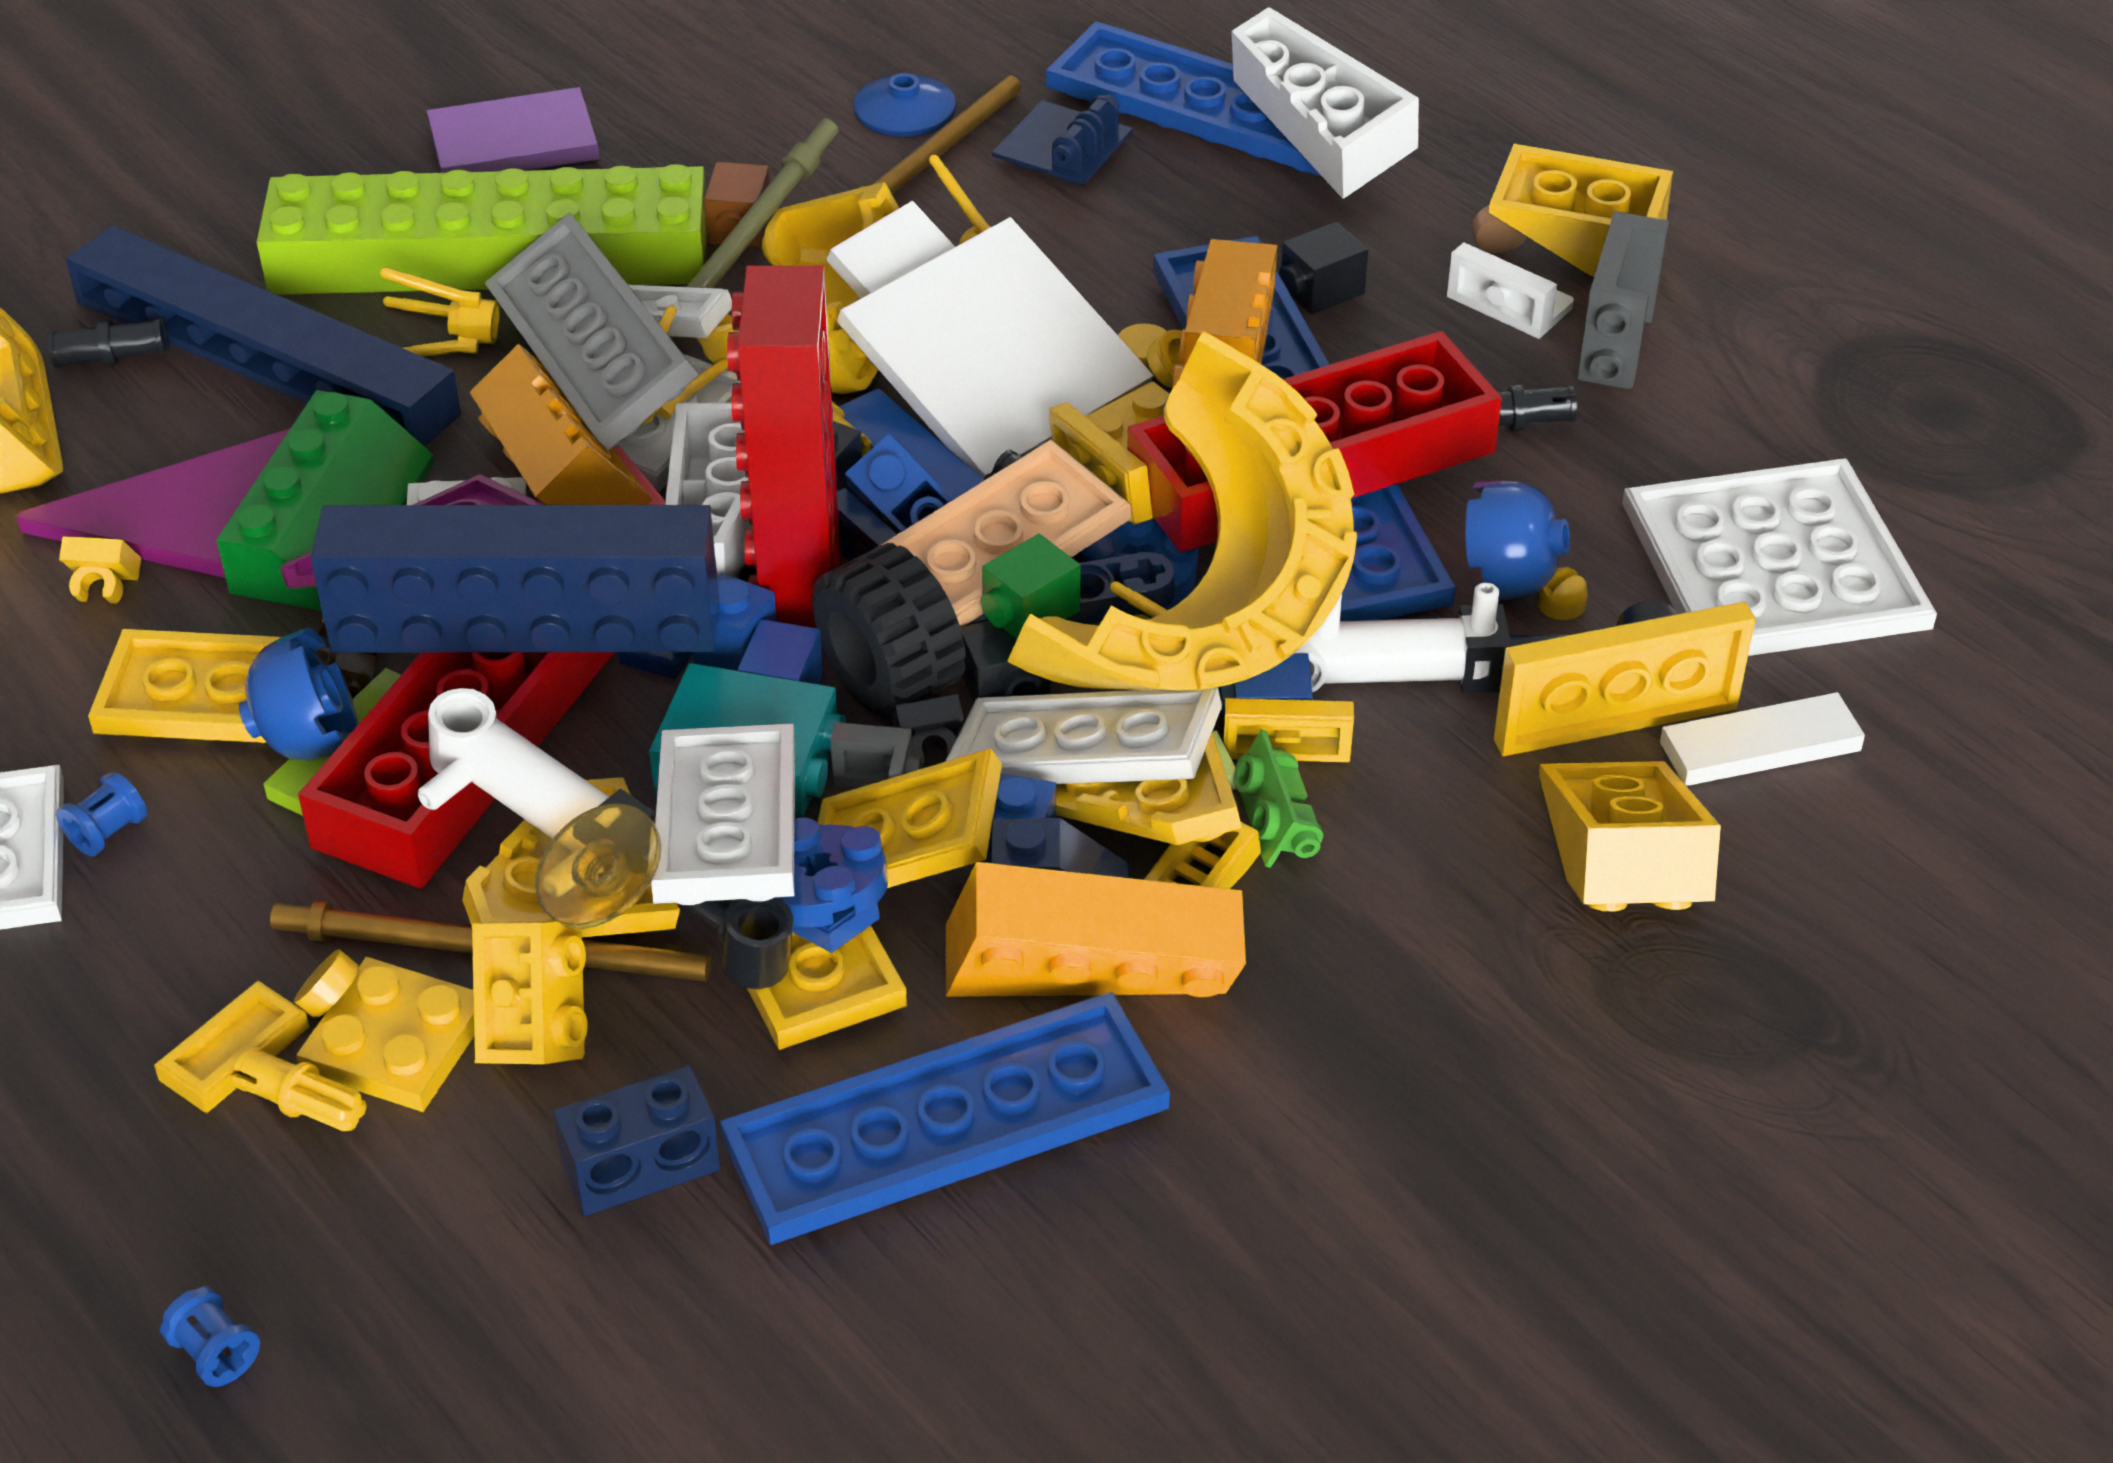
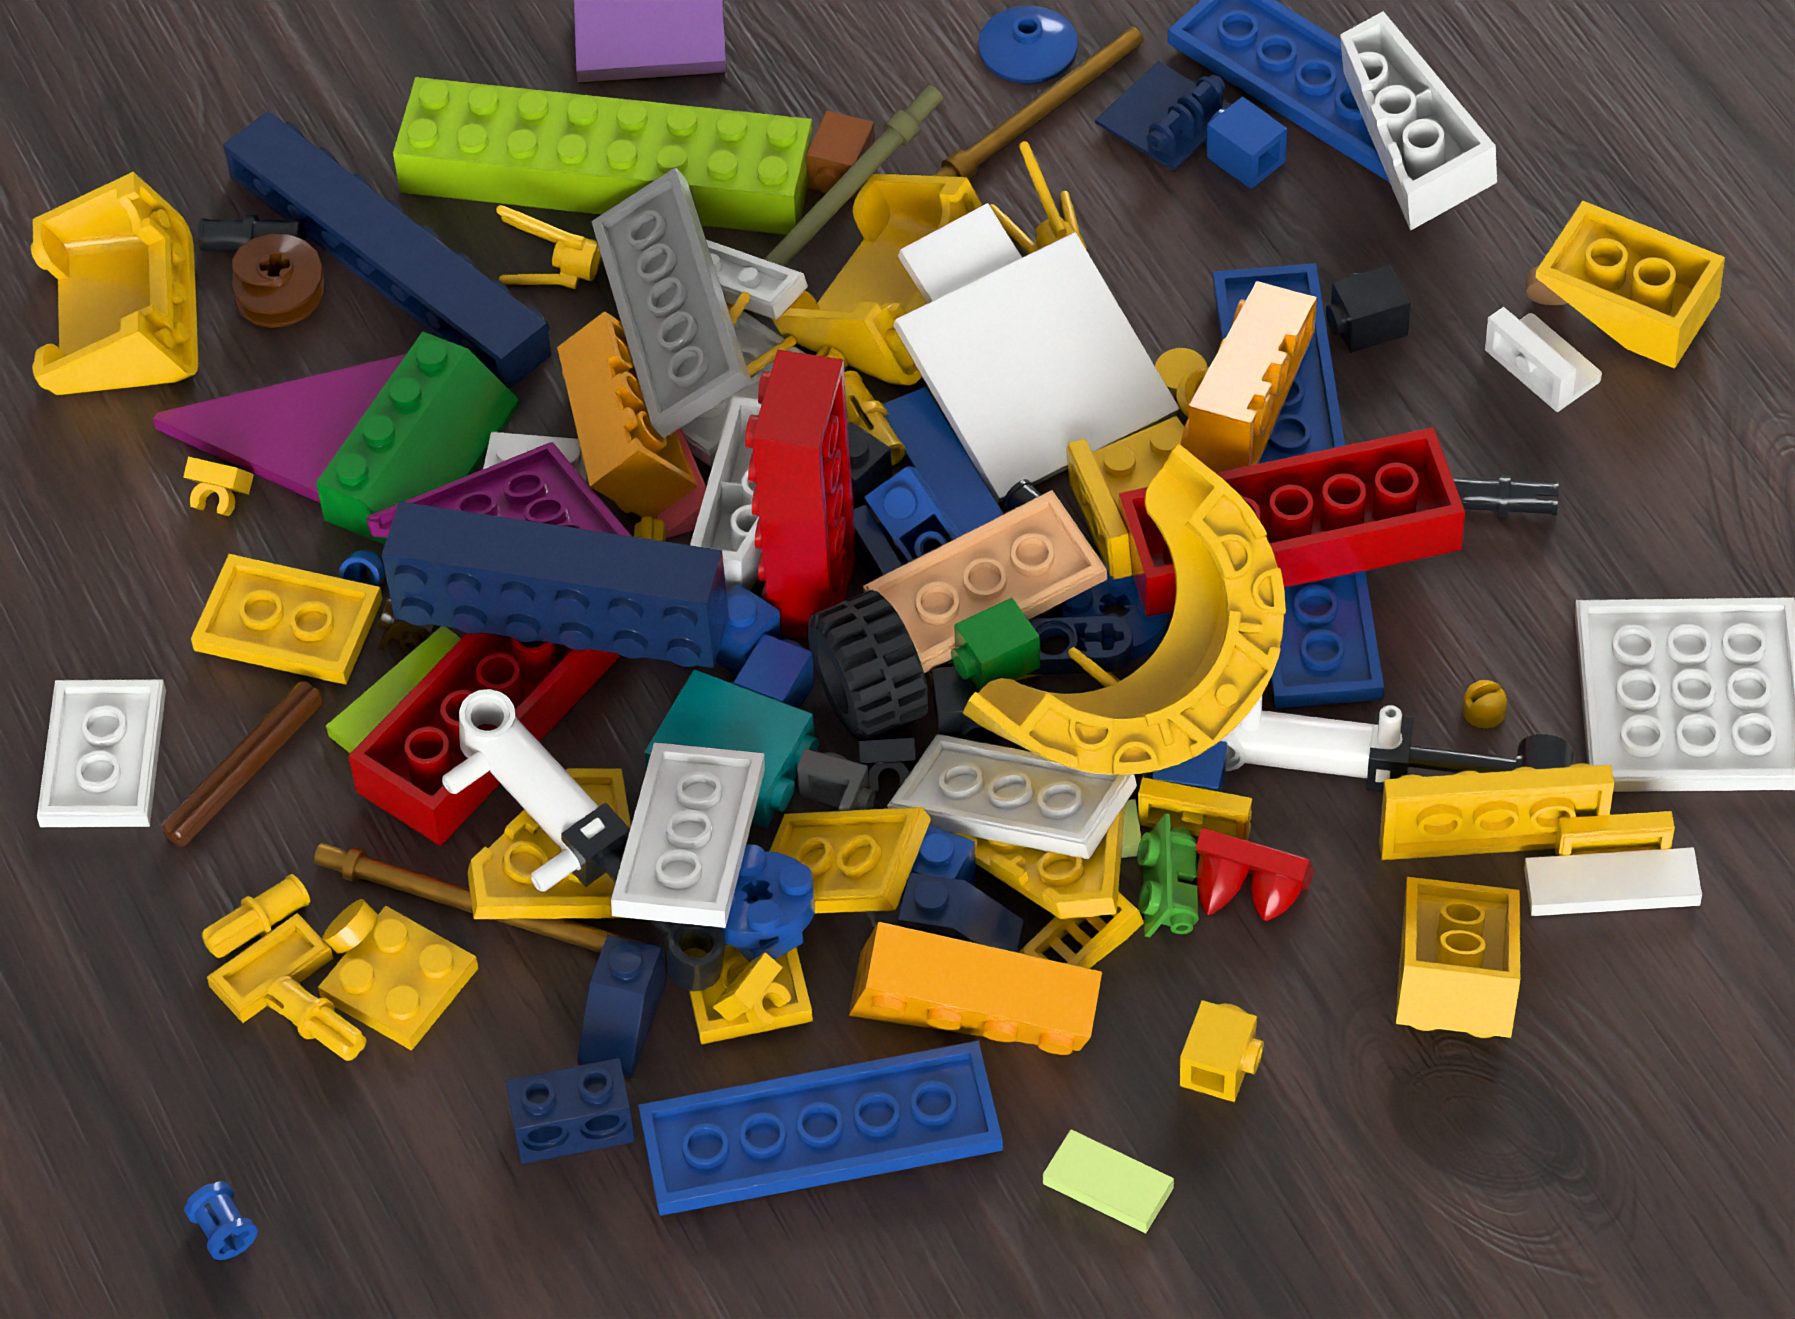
camera: 15 degrees right, 10 degrees up
(101, 814) = (191, 735): blue bush -> none
(142, 376) = (277, 280): none -> reddish brown piece
(165, 839) = (241, 764): none -> reddish brown axle
(207, 990) = (255, 916): none -> yellow axle
(273, 623) = (356, 564): none -> blue hinge
(297, 699) = (363, 660): blue cylinder -> none
(528, 992) = (506, 967): yellow bracket -> none
(598, 866) = (572, 876): clear yellow dish -> none
(675, 1007) = (622, 1002): none -> dark blue slope
(832, 970) = (748, 990): none -> yellow tile
(1152, 149) = (1246, 142): none -> blue brick
(1303, 1122) = (1108, 1181): none -> yellowish green tile
(1342, 769) = (1227, 861): none -> red tile
(1394, 962) = (1220, 1050): none -> yellow brick
(1514, 537) = (1441, 652): blue cylinder -> none
(1622, 299) = (1644, 367): dark grey panel -> none
(1752, 686) = (1614, 833): none -> yellow tile

